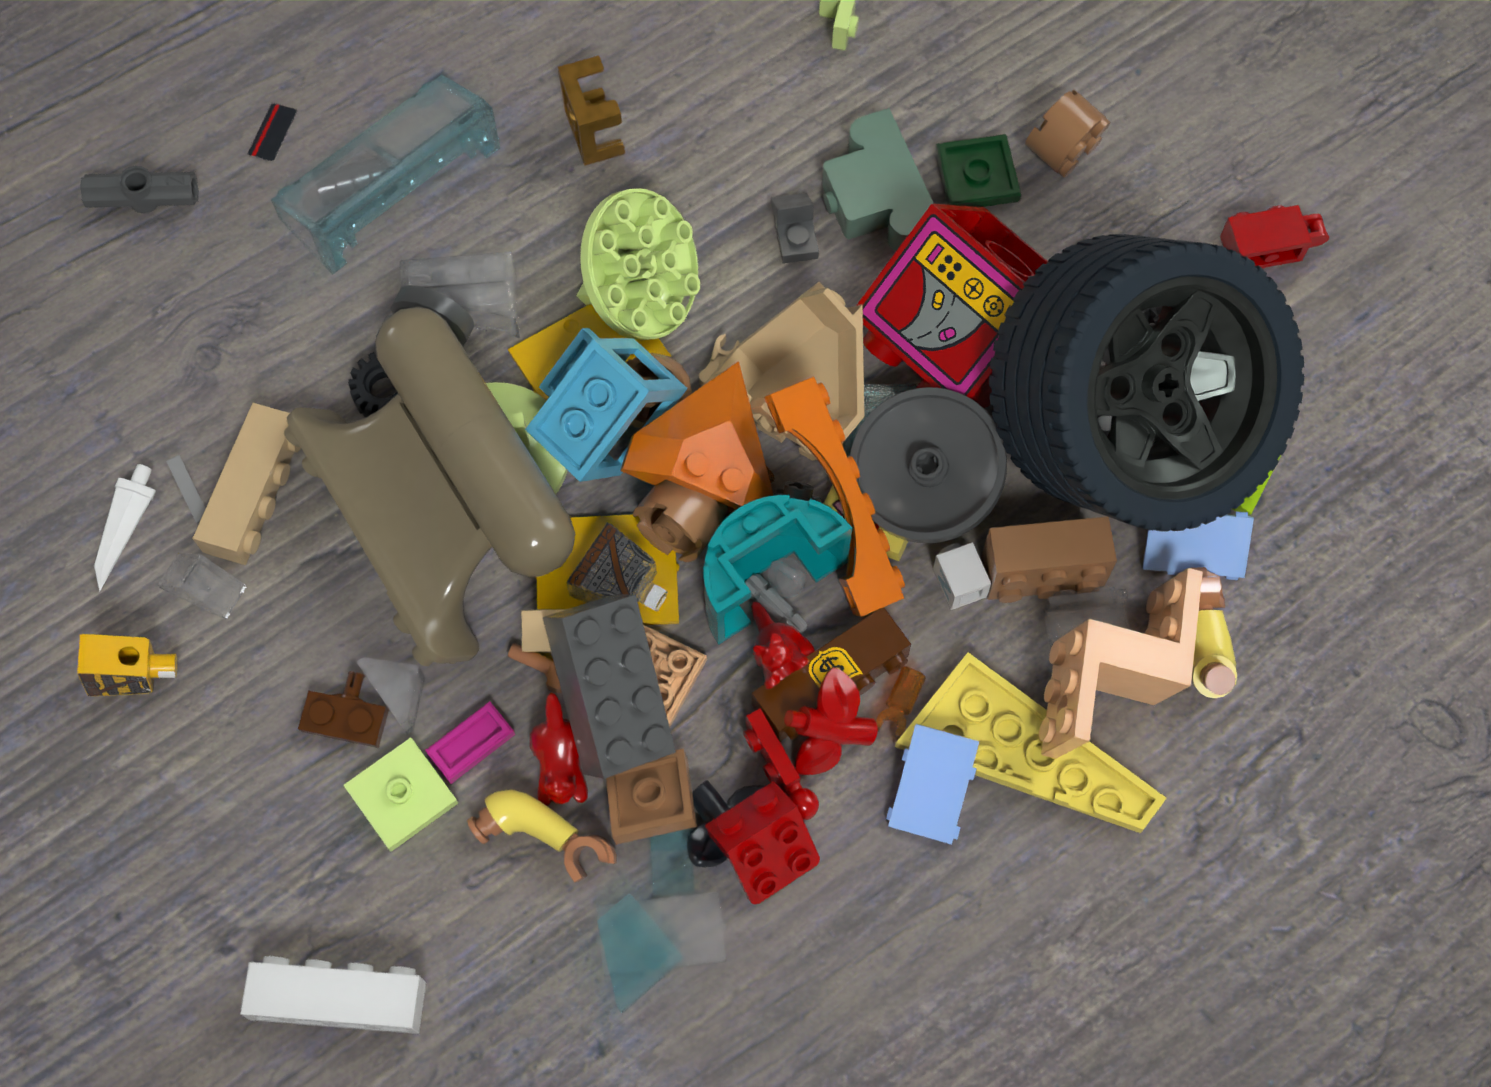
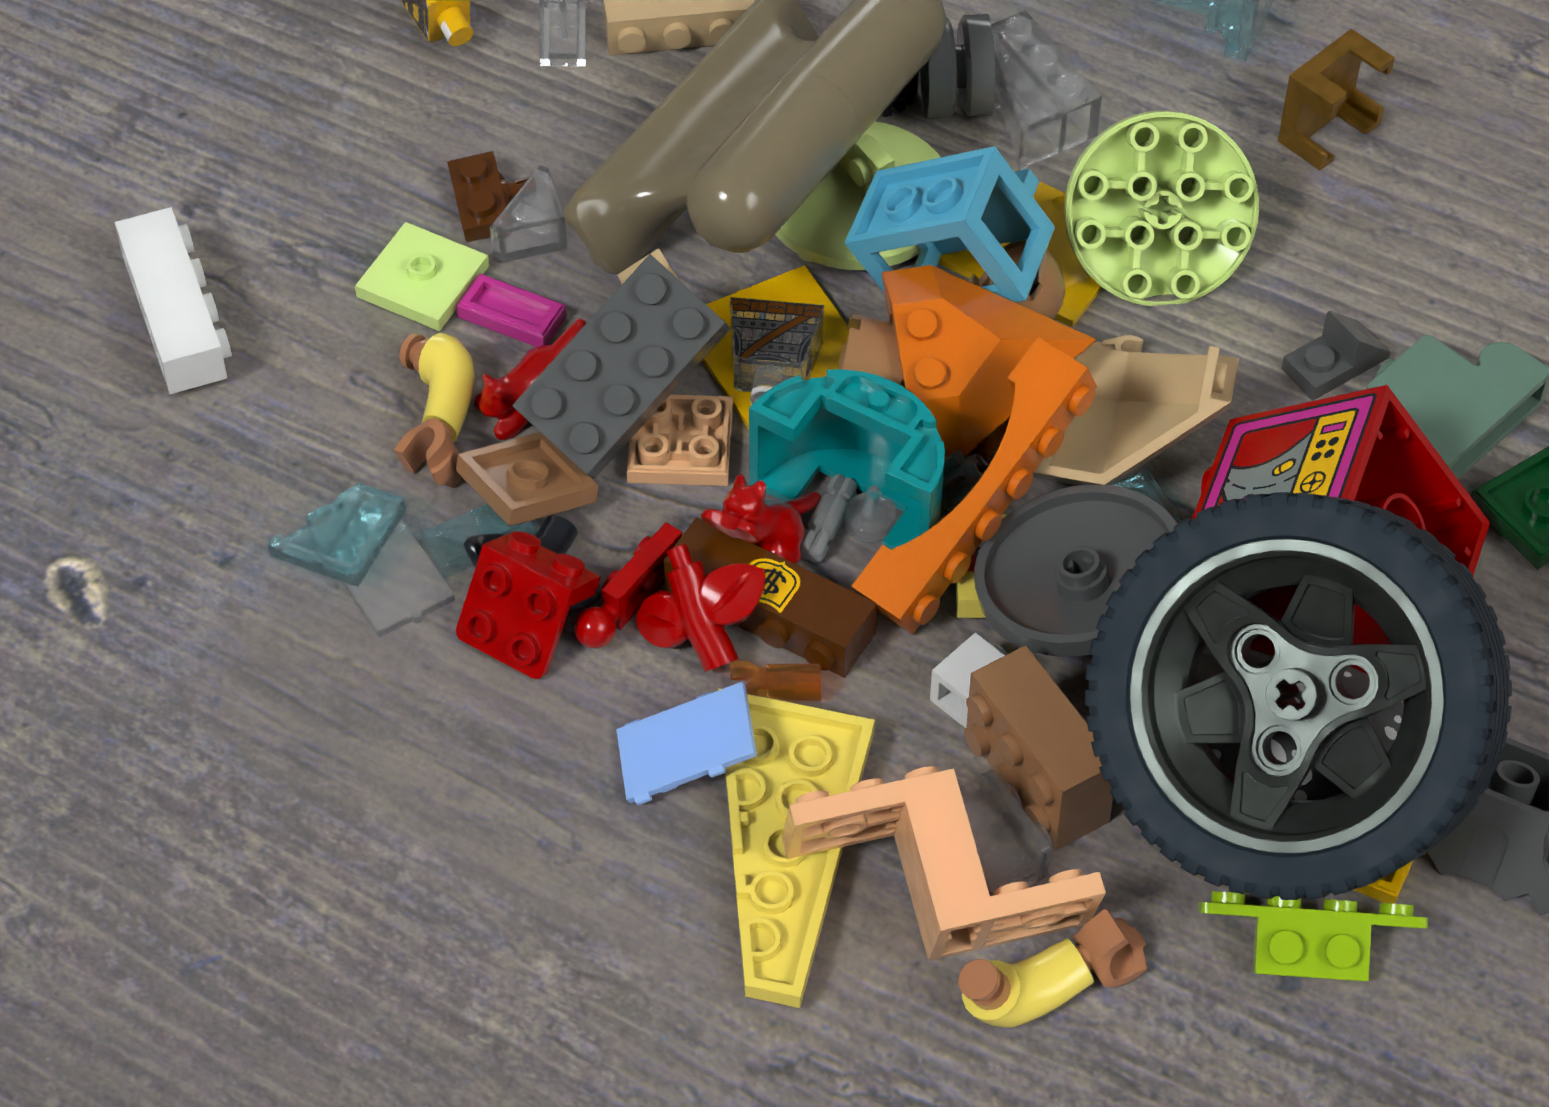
camera: 65 degrees right, 15 degrees down
(1217, 546) = (1174, 919): light blue piece -> none

